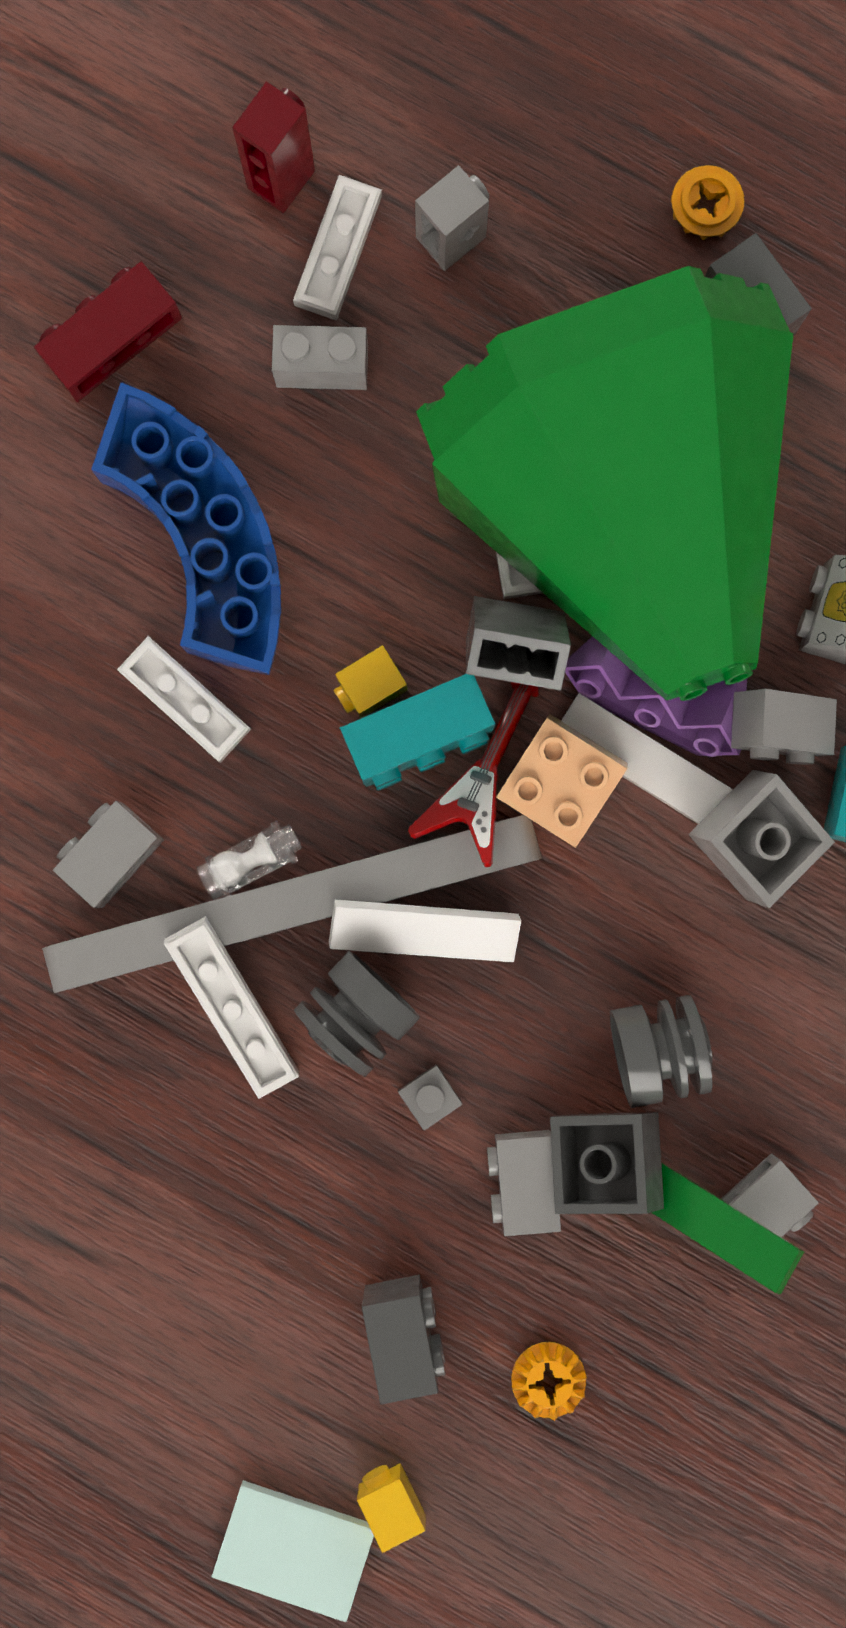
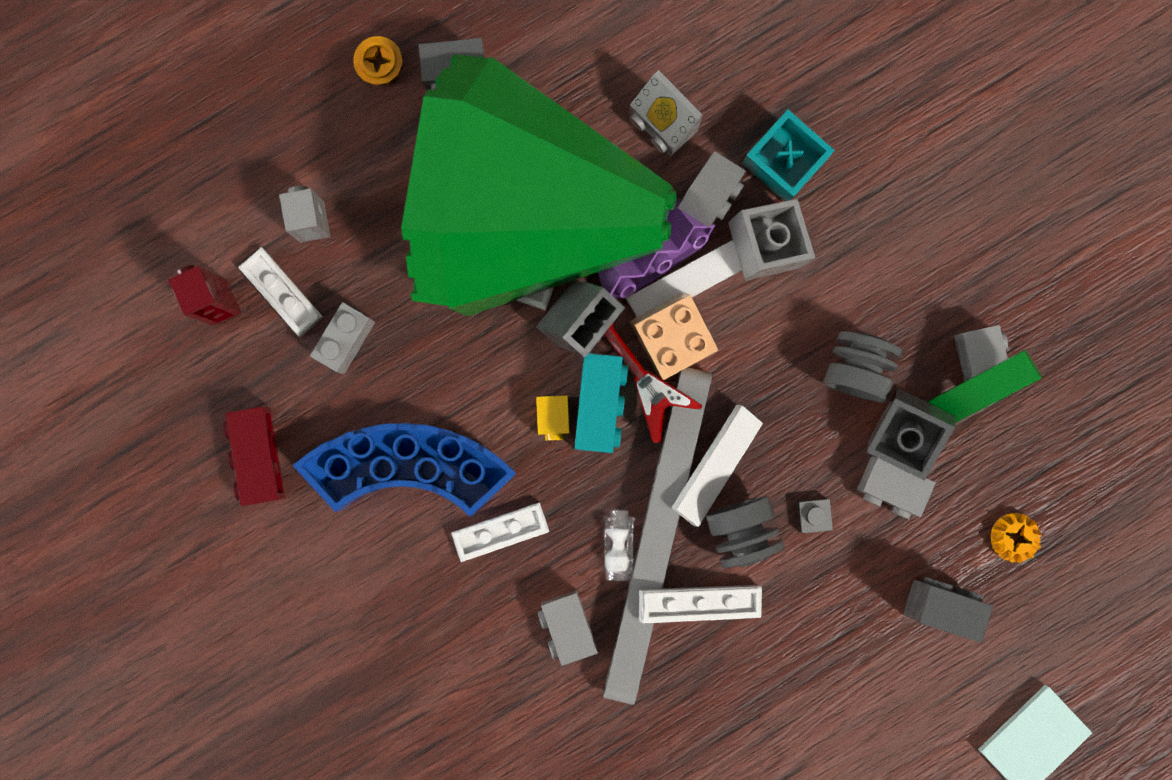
camera: 65 degrees left, 0 degrees up
(390, 1506) = (1040, 670): yellow brick -> none

